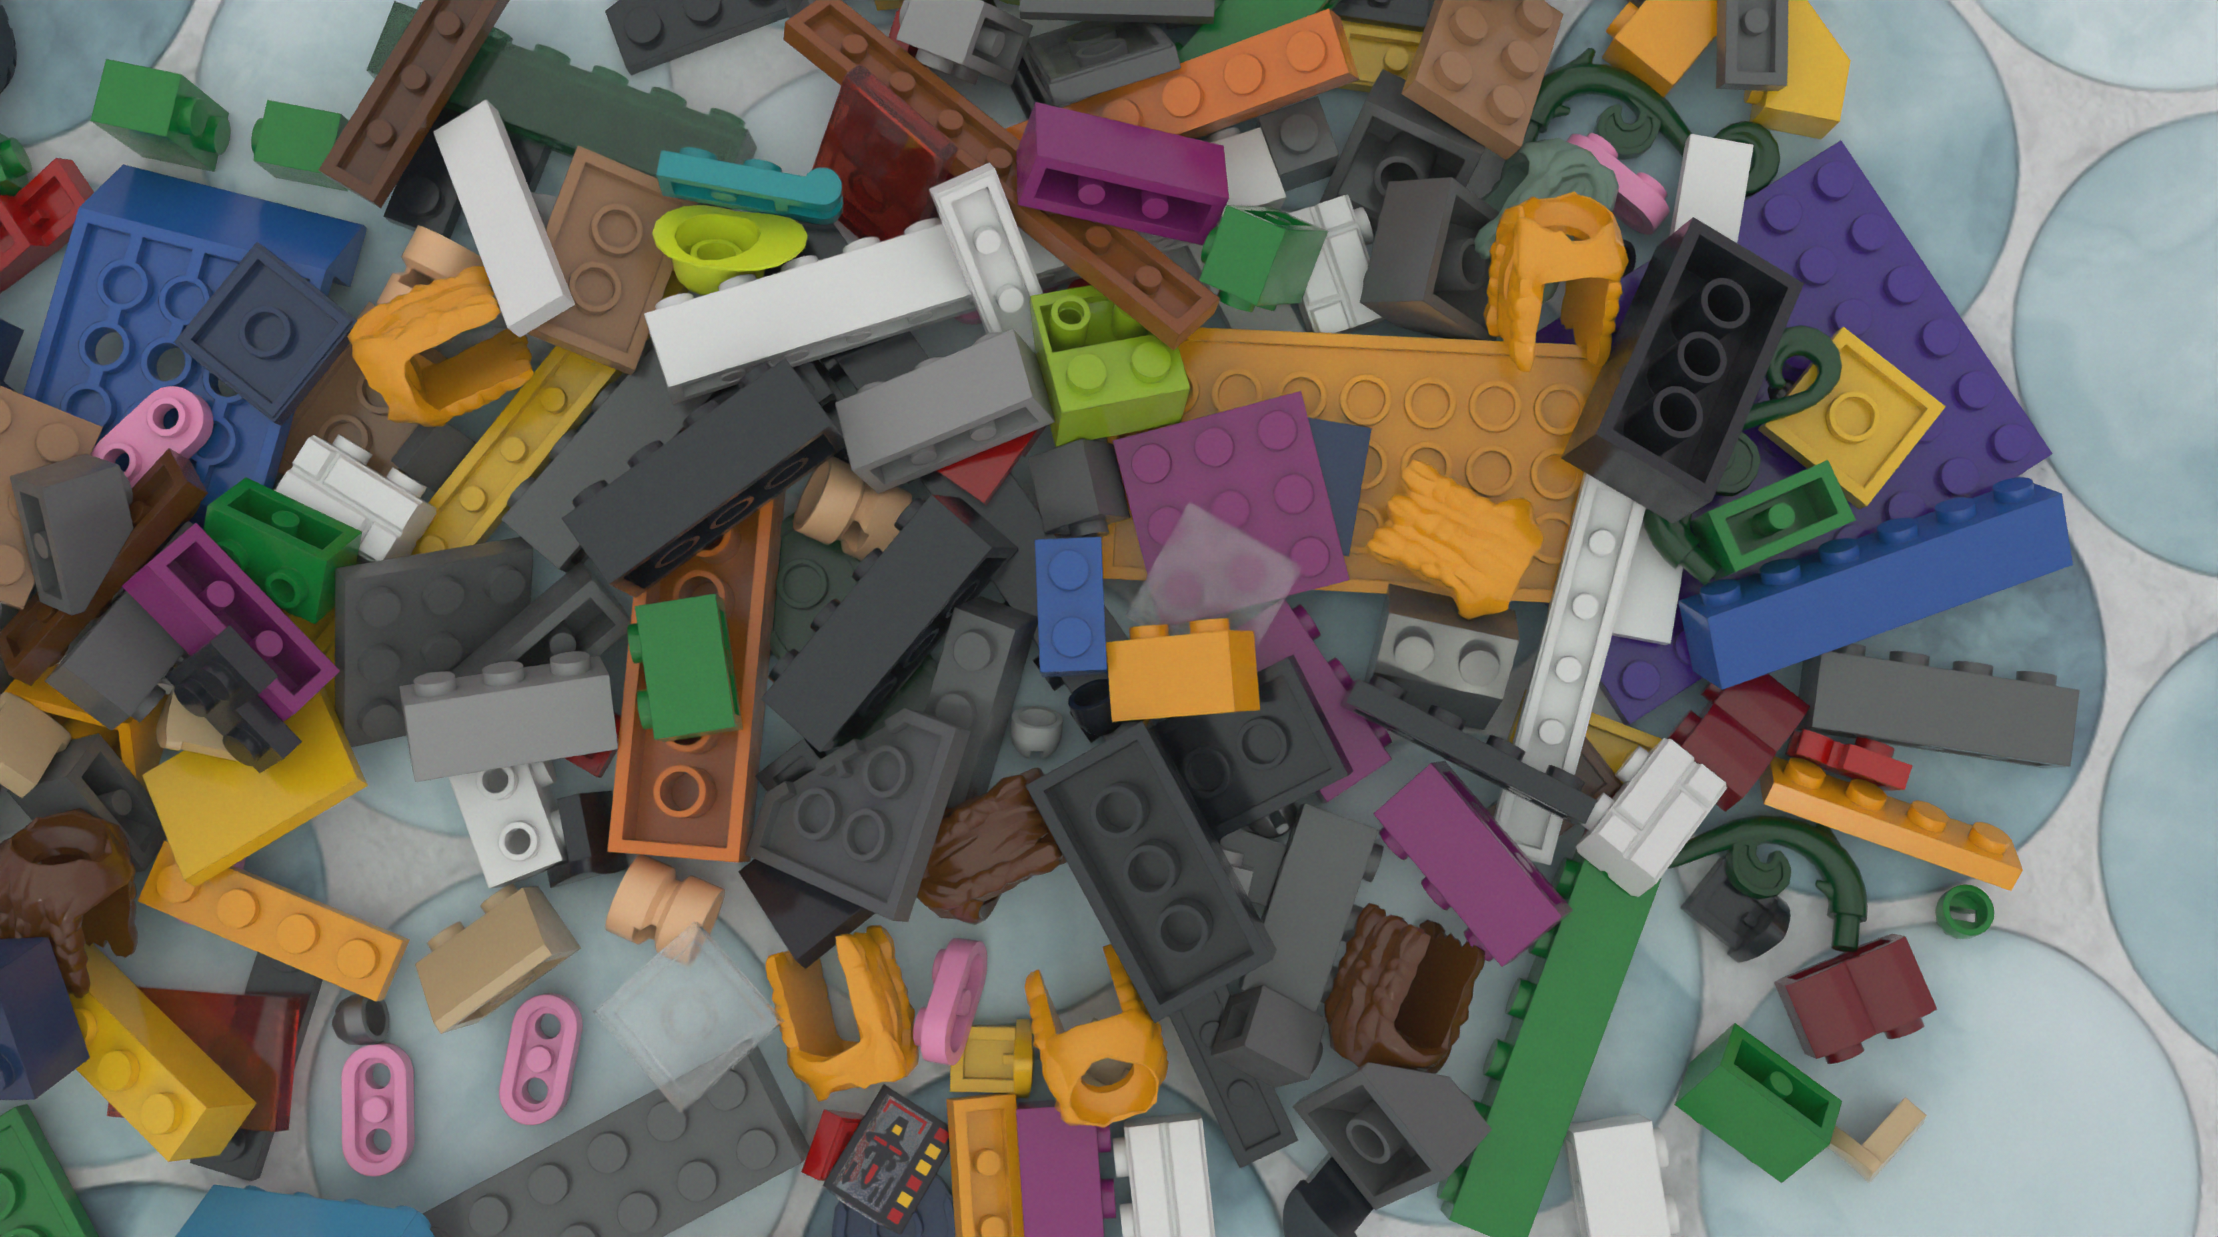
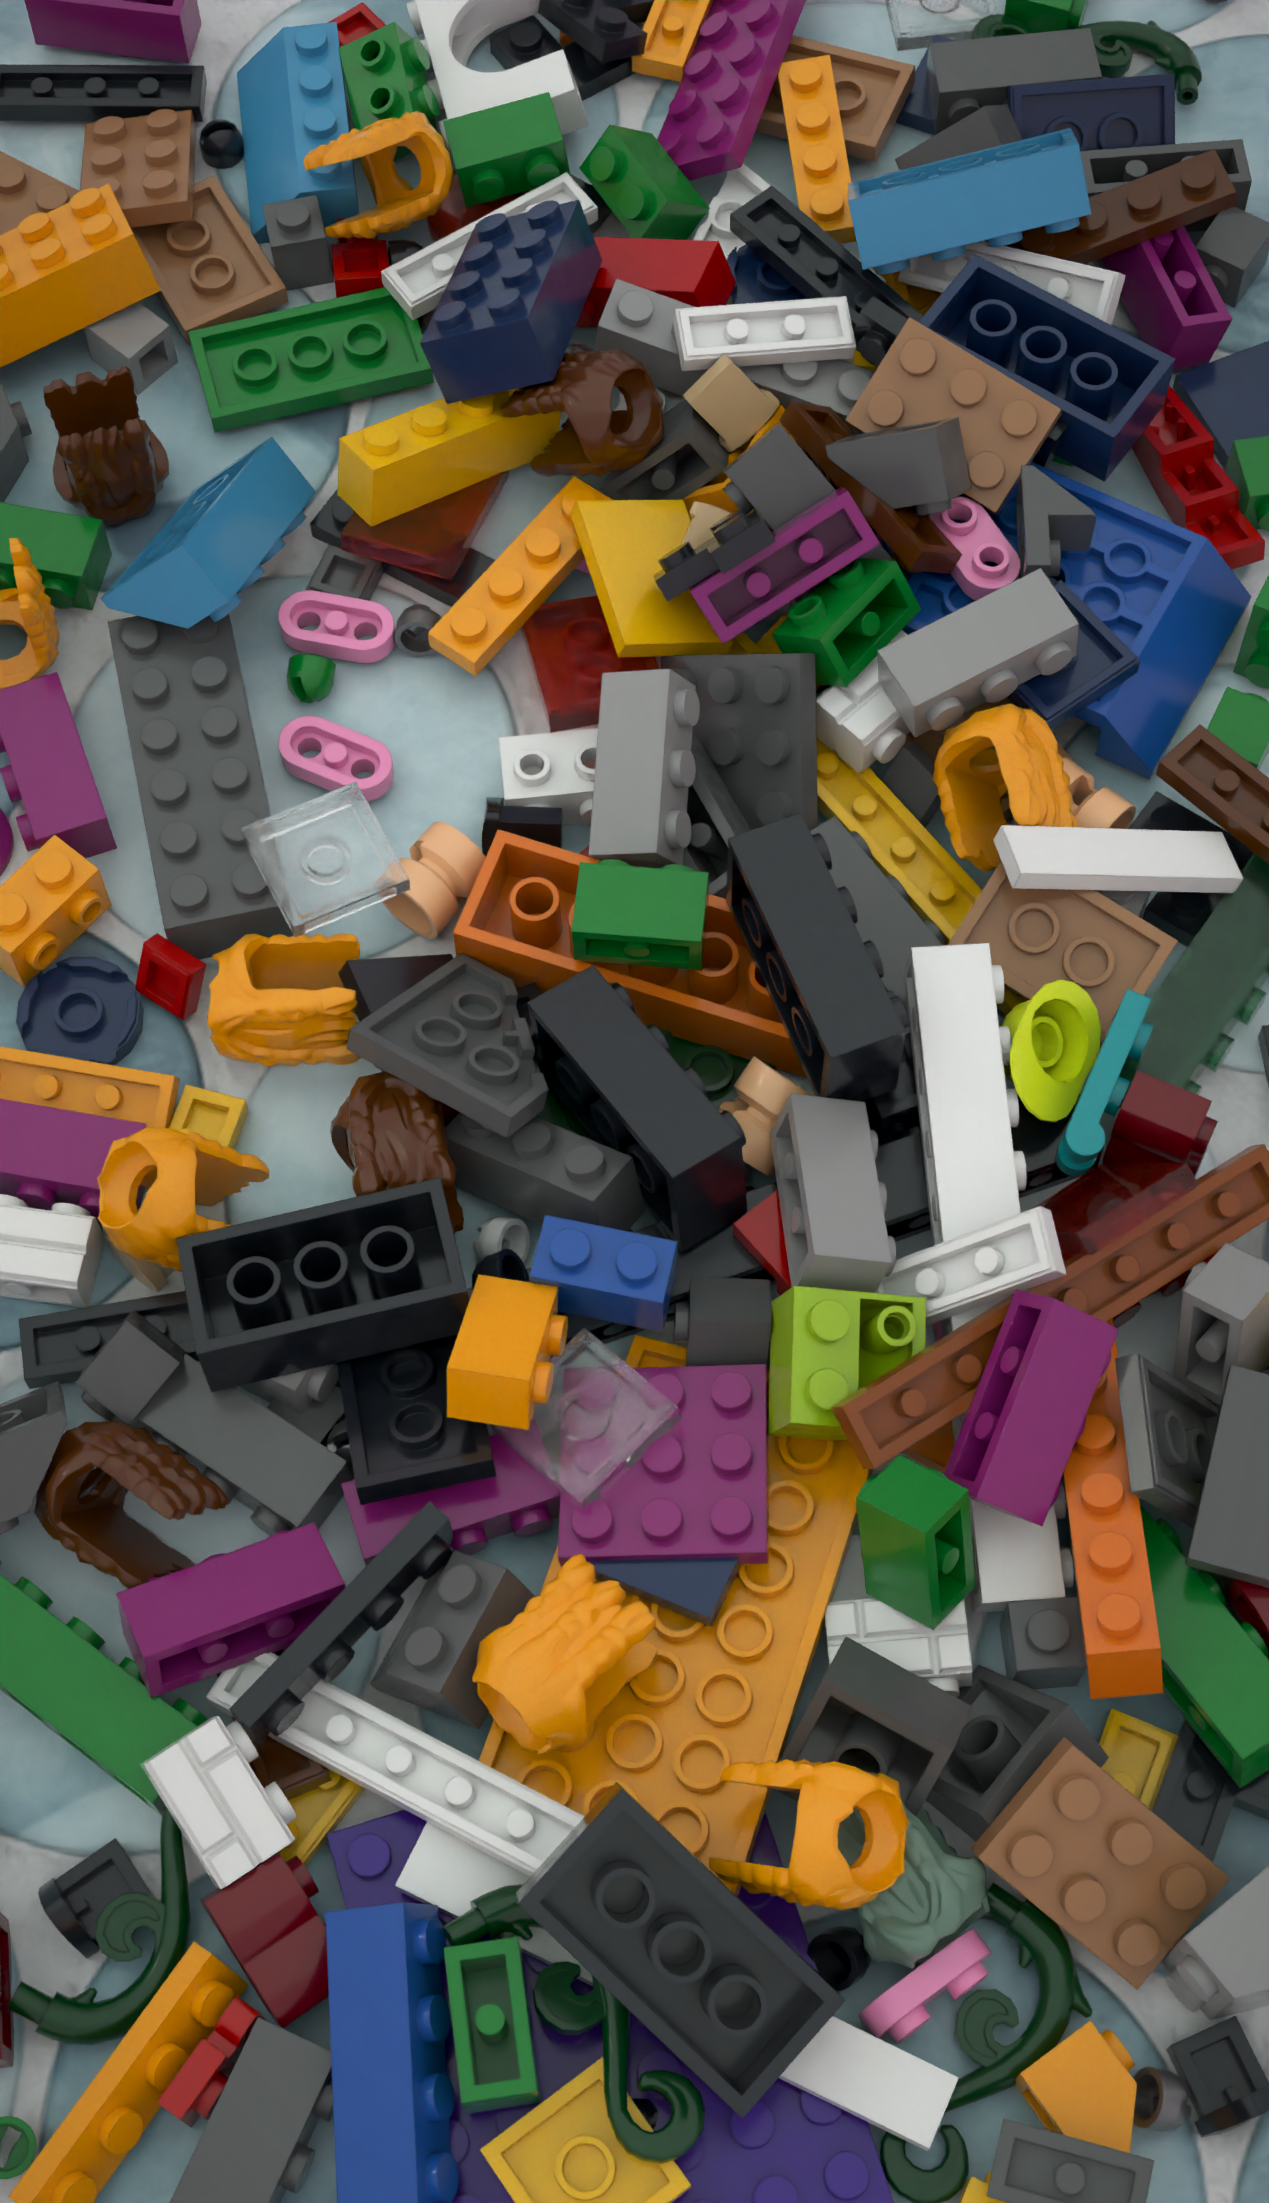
camera: 105 degrees right, 20 degrees down
(103, 375) = (1048, 522): none -> dark grey slope
(298, 397) = (978, 653): none -> light grey brick
(313, 1124) = (346, 574): none -> dark grey tile
(374, 831) = (568, 654): none -> clear red tile
(449, 1117) = (310, 677): none -> green hinge
(493, 957) = (436, 733): tan slope -> none
(778, 123) = (1160, 1125): none -> dark red brick
(890, 1160) = (141, 1013): piece -> none
(958, 985) = (266, 1099): bright pink plate -> none

